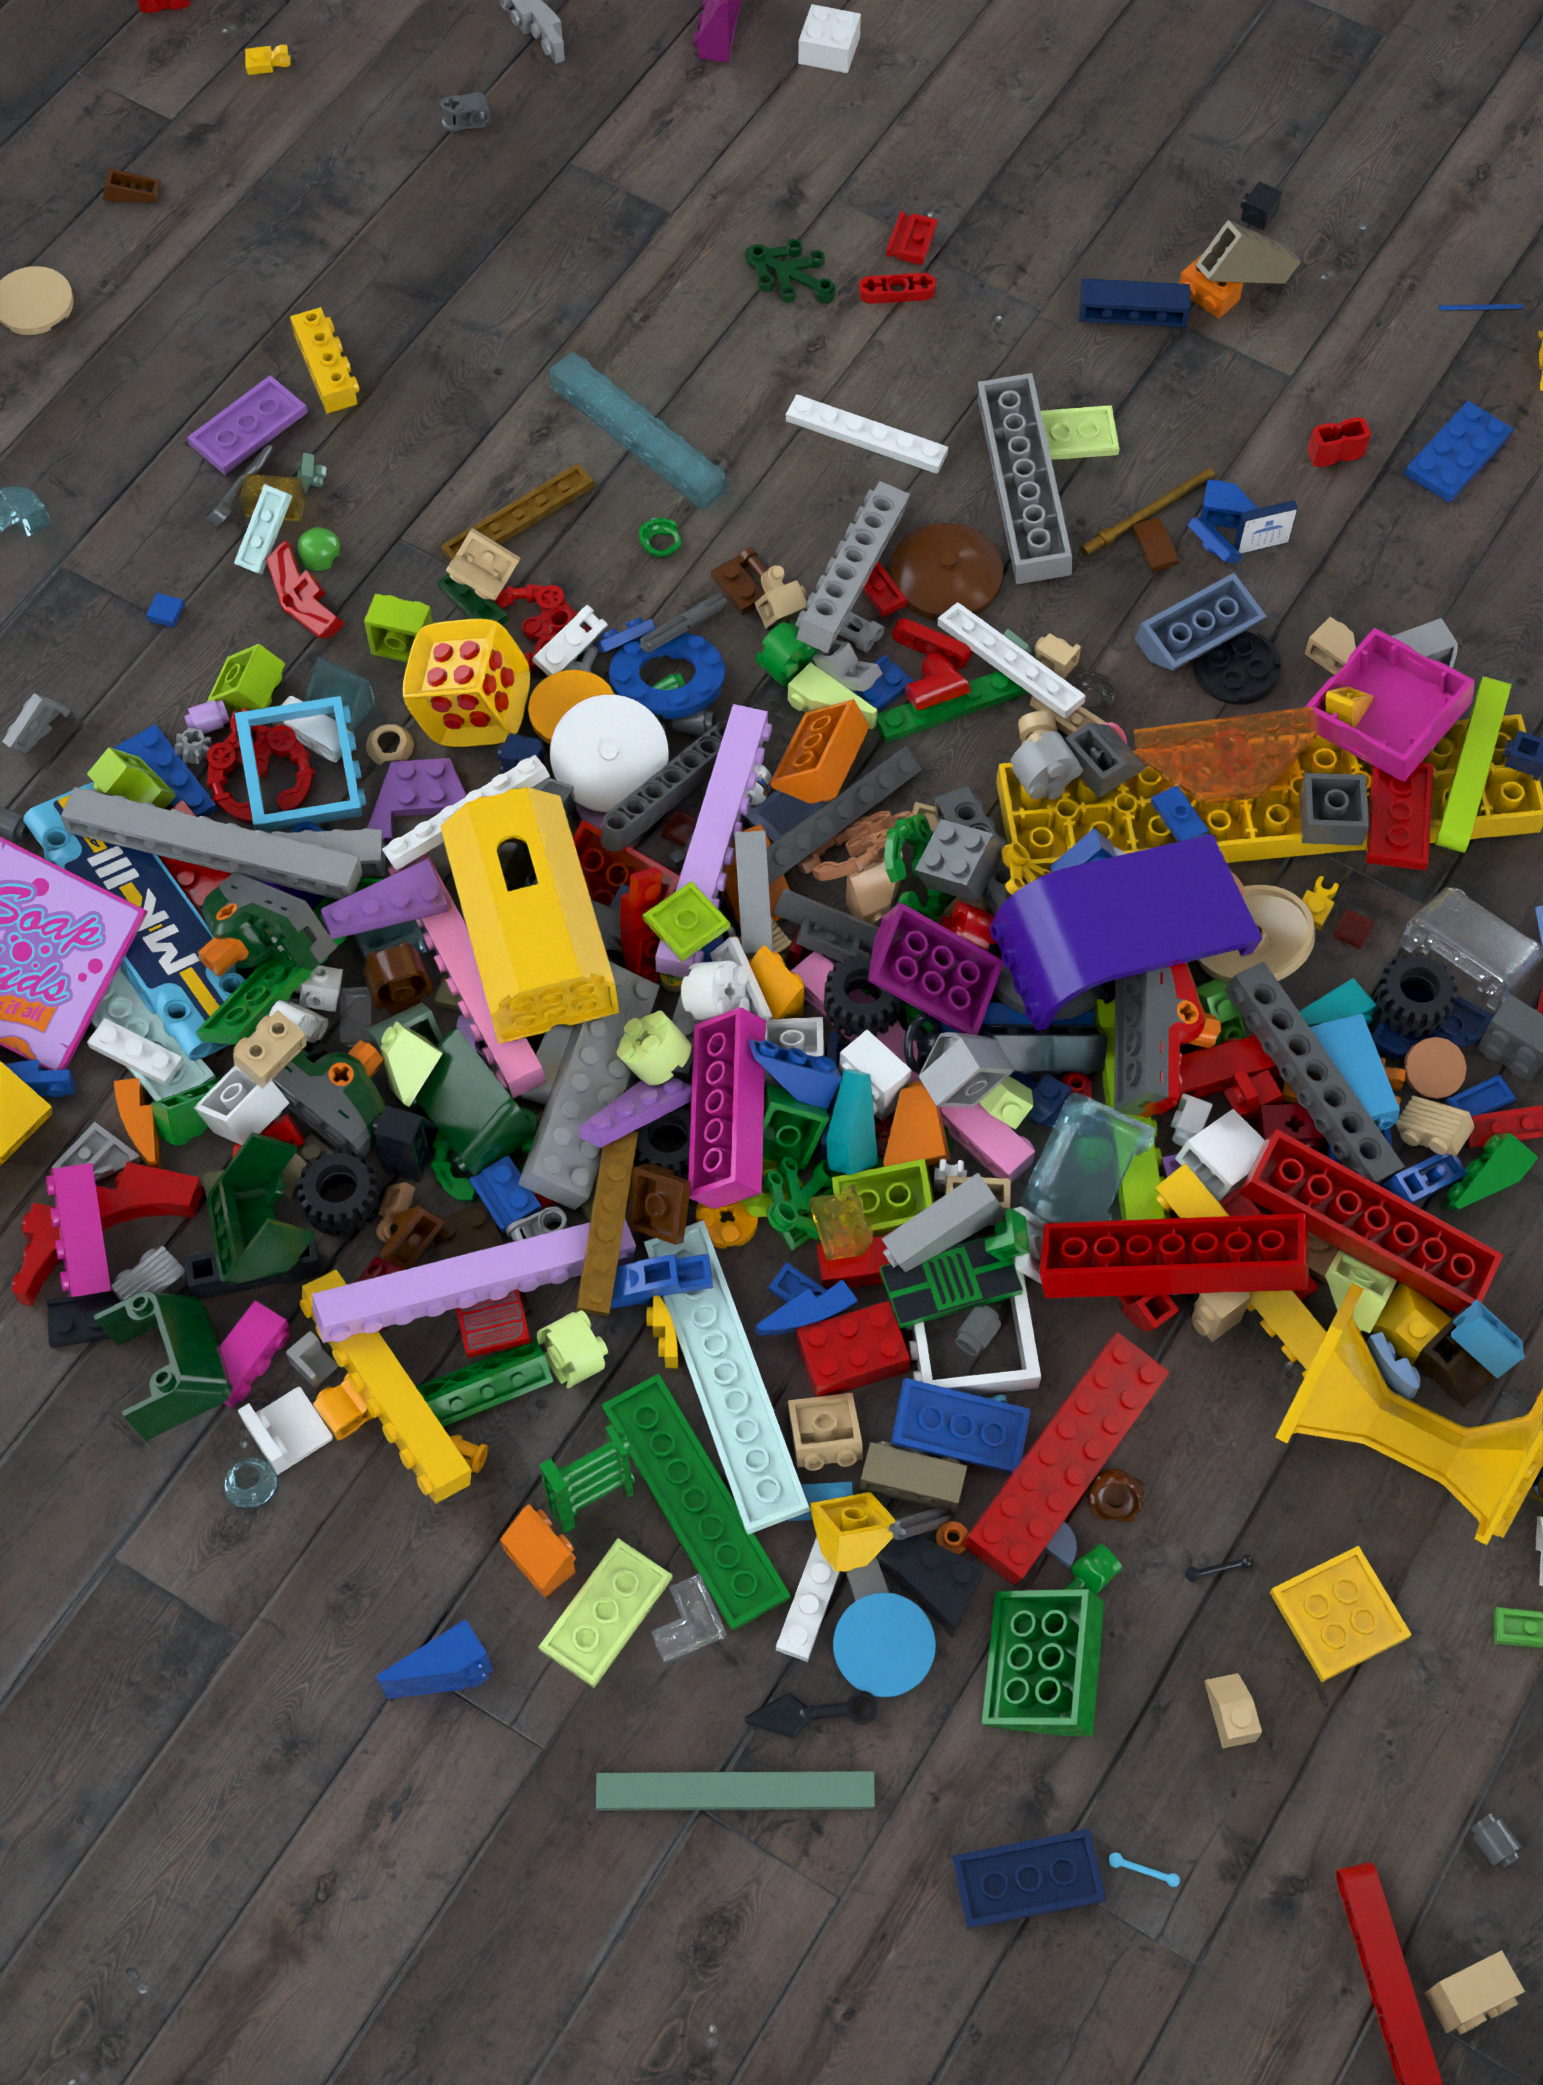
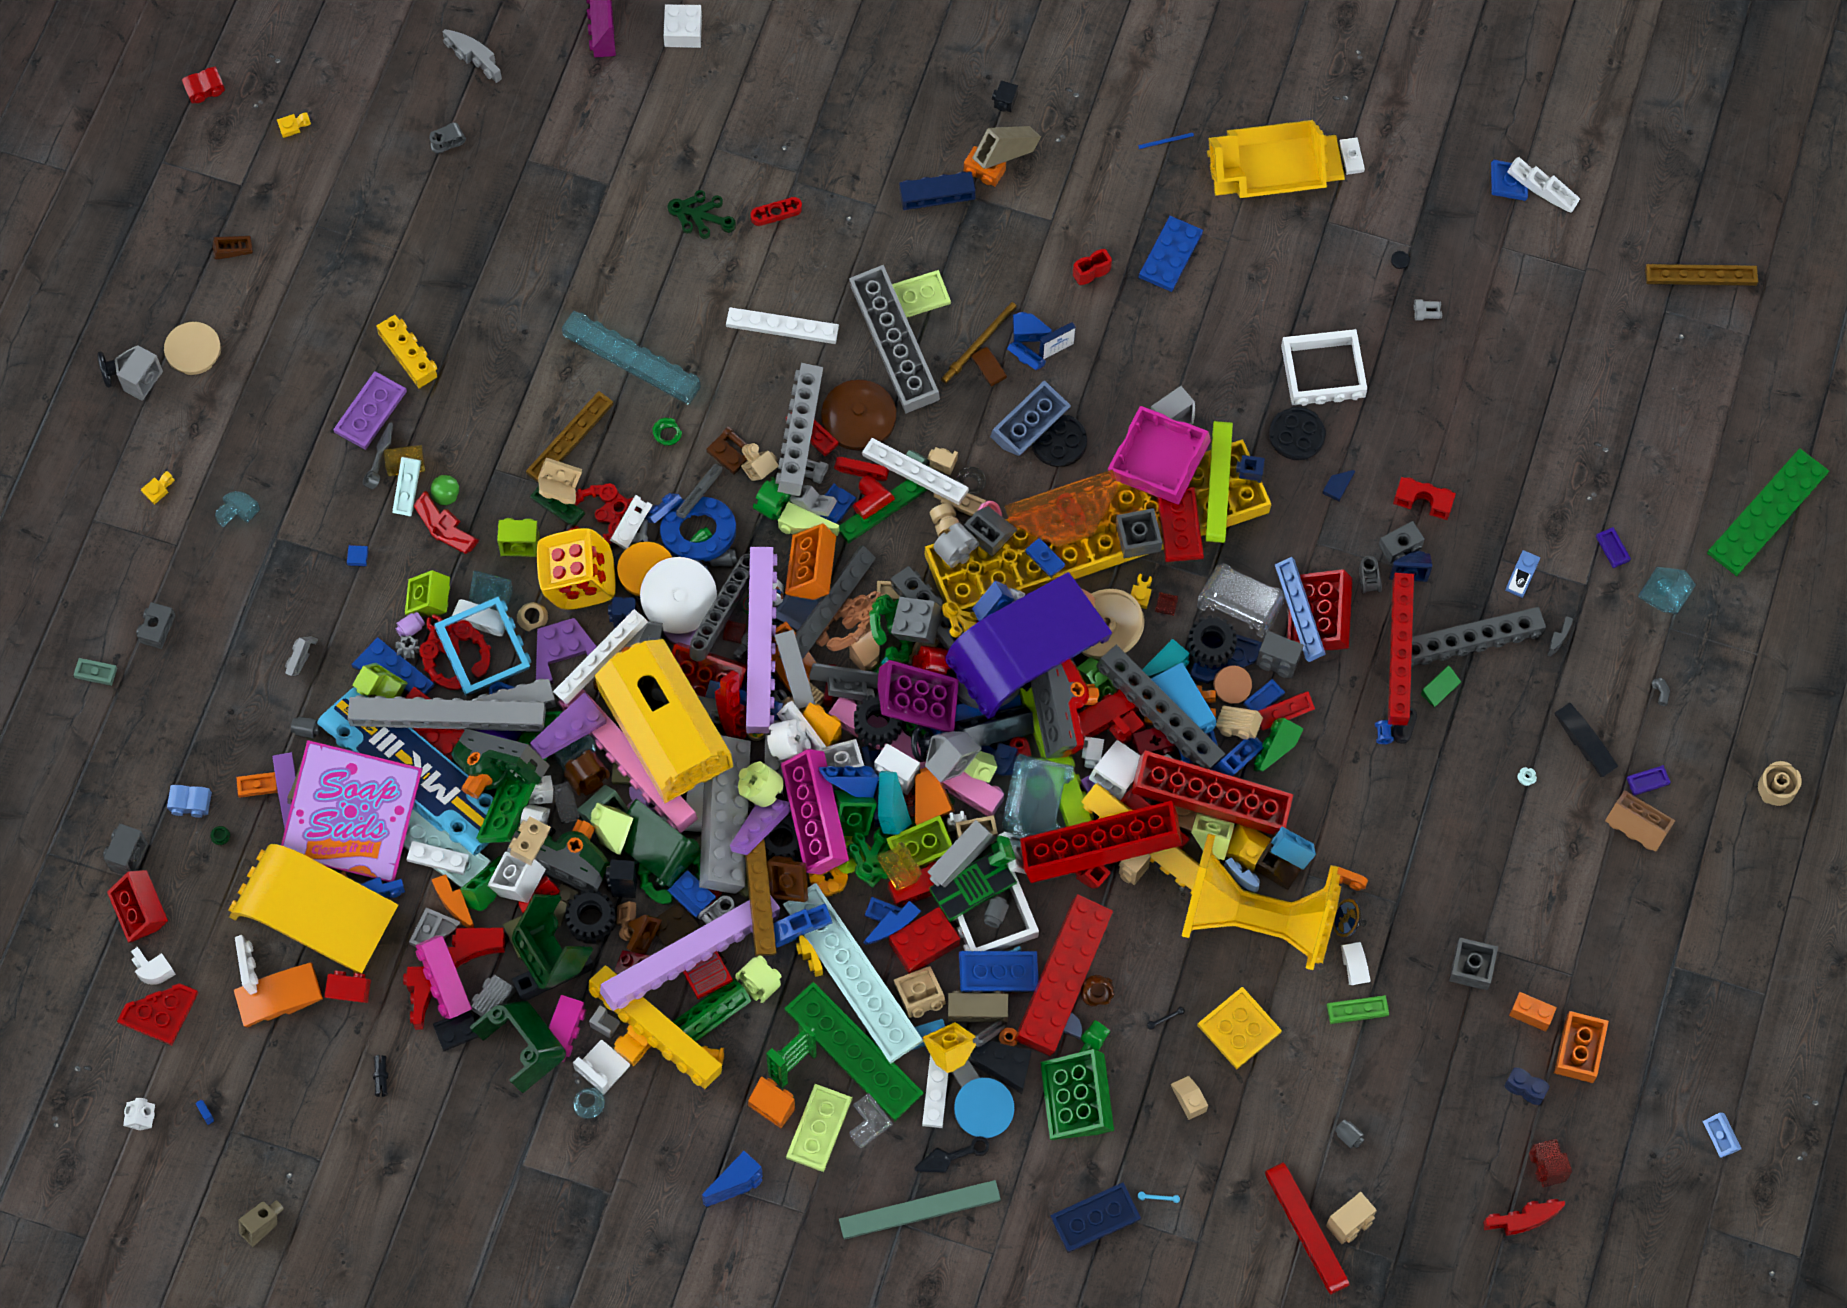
camera: 15 degrees left, 5 degrees up
(310, 473) = (422, 437): sand green tile -> none
(686, 921) = (760, 699): lime plate -> none
(912, 238) = (777, 171): red plate -> none
(1331, 645) = (1117, 414): tan slope -> none
(1348, 704) = (1134, 460): yellow slope -> none

